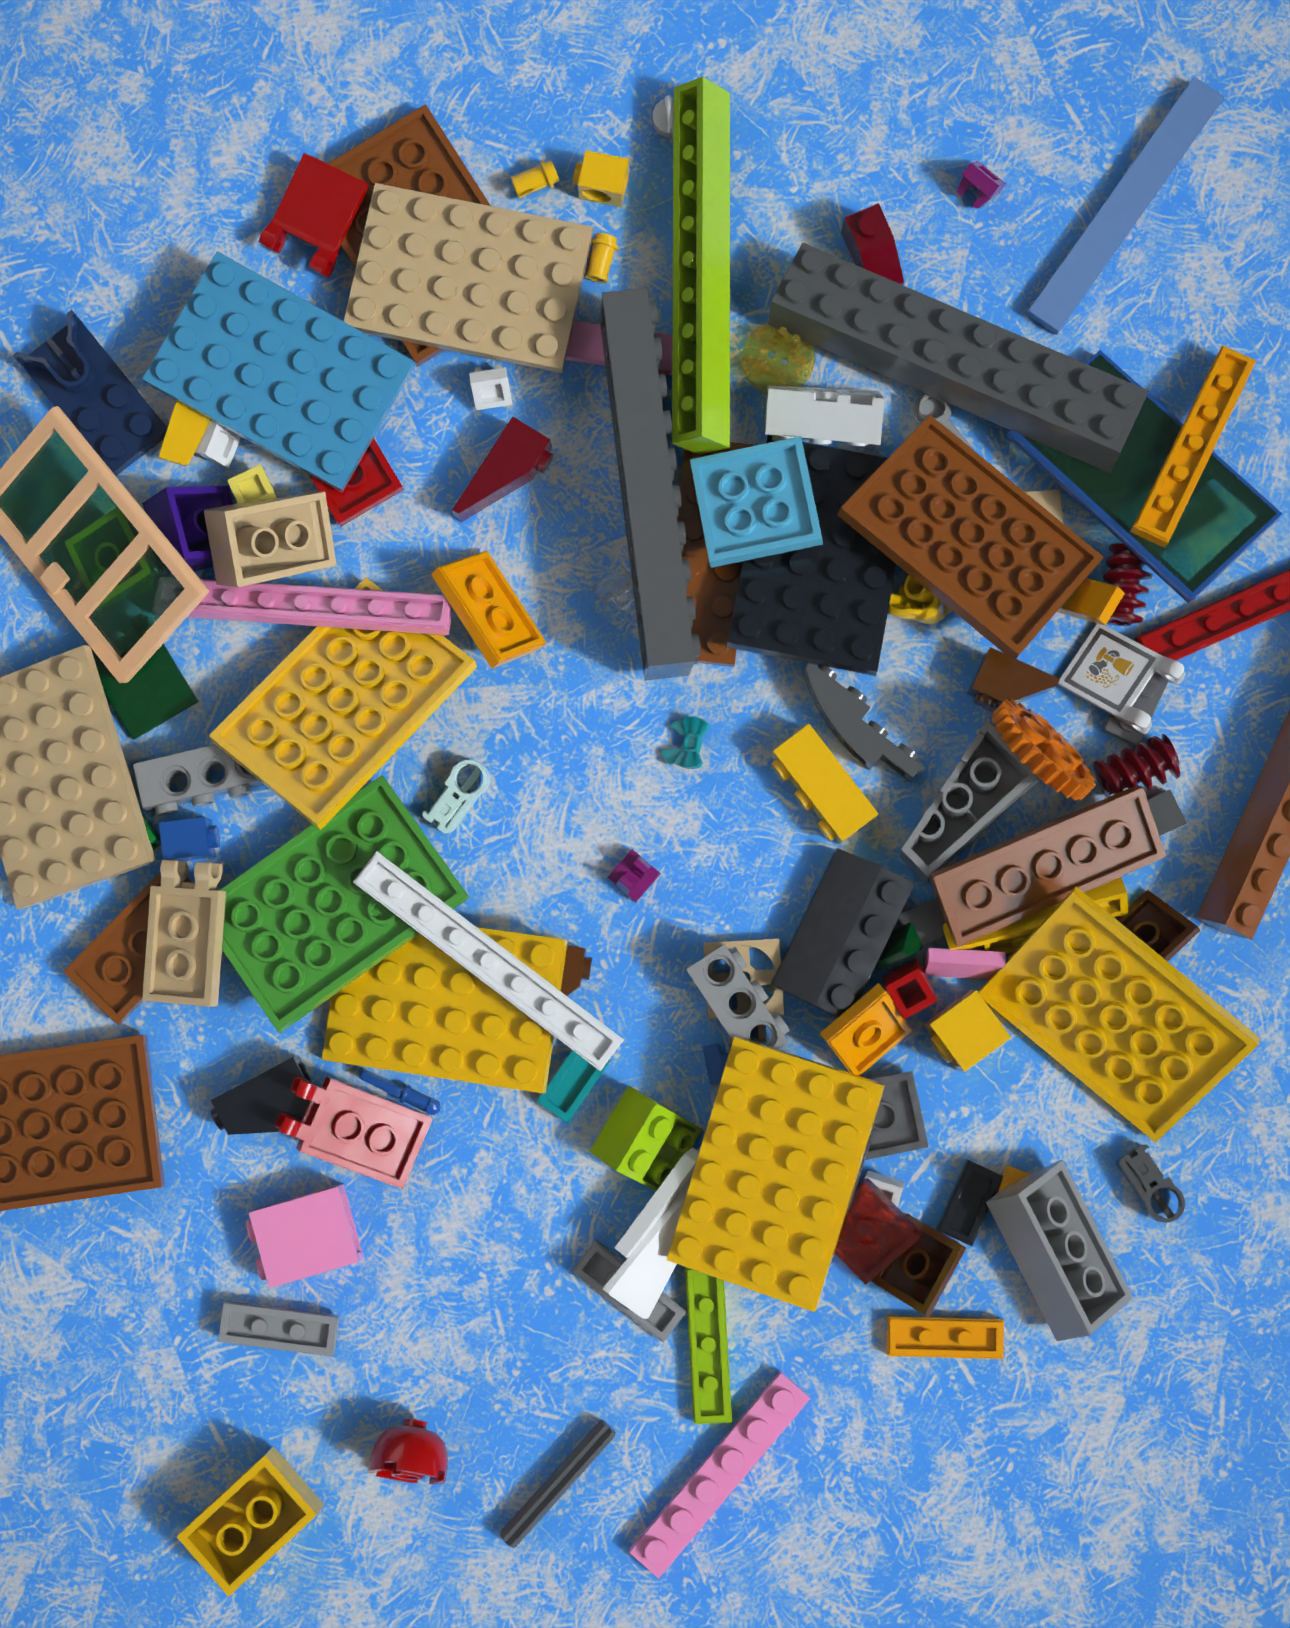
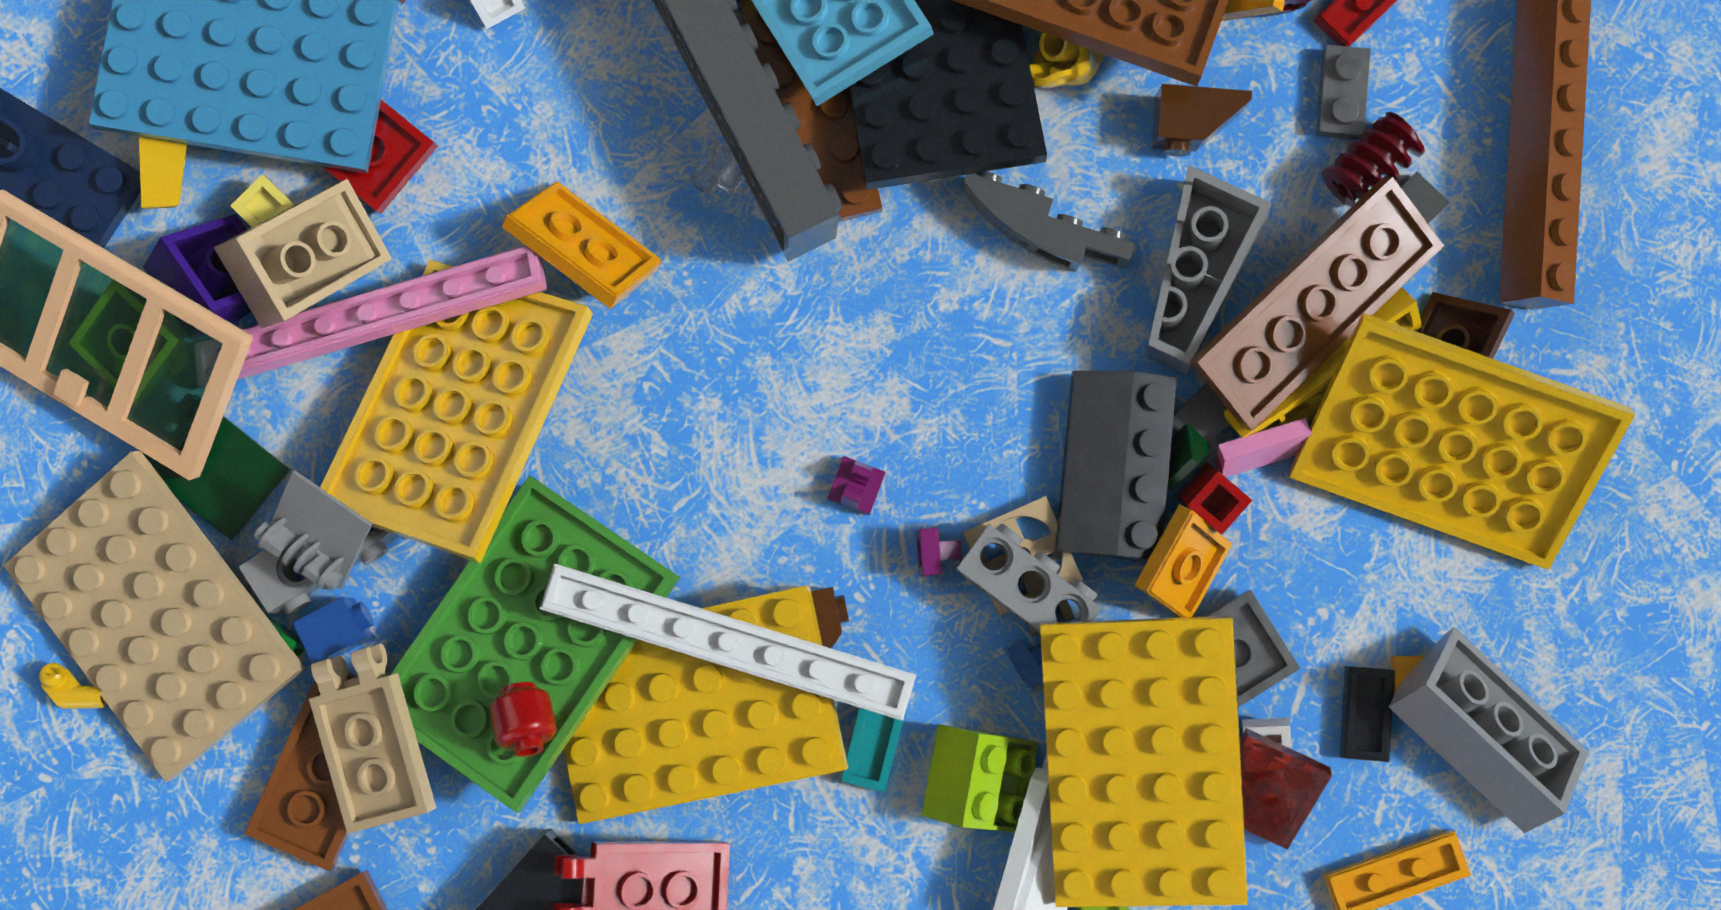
camera: 25 degrees left, 0 degrees up
(202, 759) = (316, 532): none -> light grey hinge
(218, 445) = (207, 170): white tile -> none
(309, 961) = (522, 718): none -> red head
(408, 1095) = (691, 827): blue piece -> none
(455, 801) = (623, 475): light aqua piece -> none
(508, 466) = (544, 80): dark red slope -> none
(674, 949) = (932, 551): none -> magenta tile
(687, 756) = (868, 329): teal piece -> none
(822, 785) = (1031, 306): yellow brick -> none
(923, 1269) = (1348, 810): reddish brown slope -> none
(966, 1031) = (1295, 522): yellow head -> none
(1043, 749) = (1265, 175): orange gear -> none
(1113, 673) = (1307, 65): white flag -> none
(1146, 1180) = (1554, 616): dark grey piece -> none

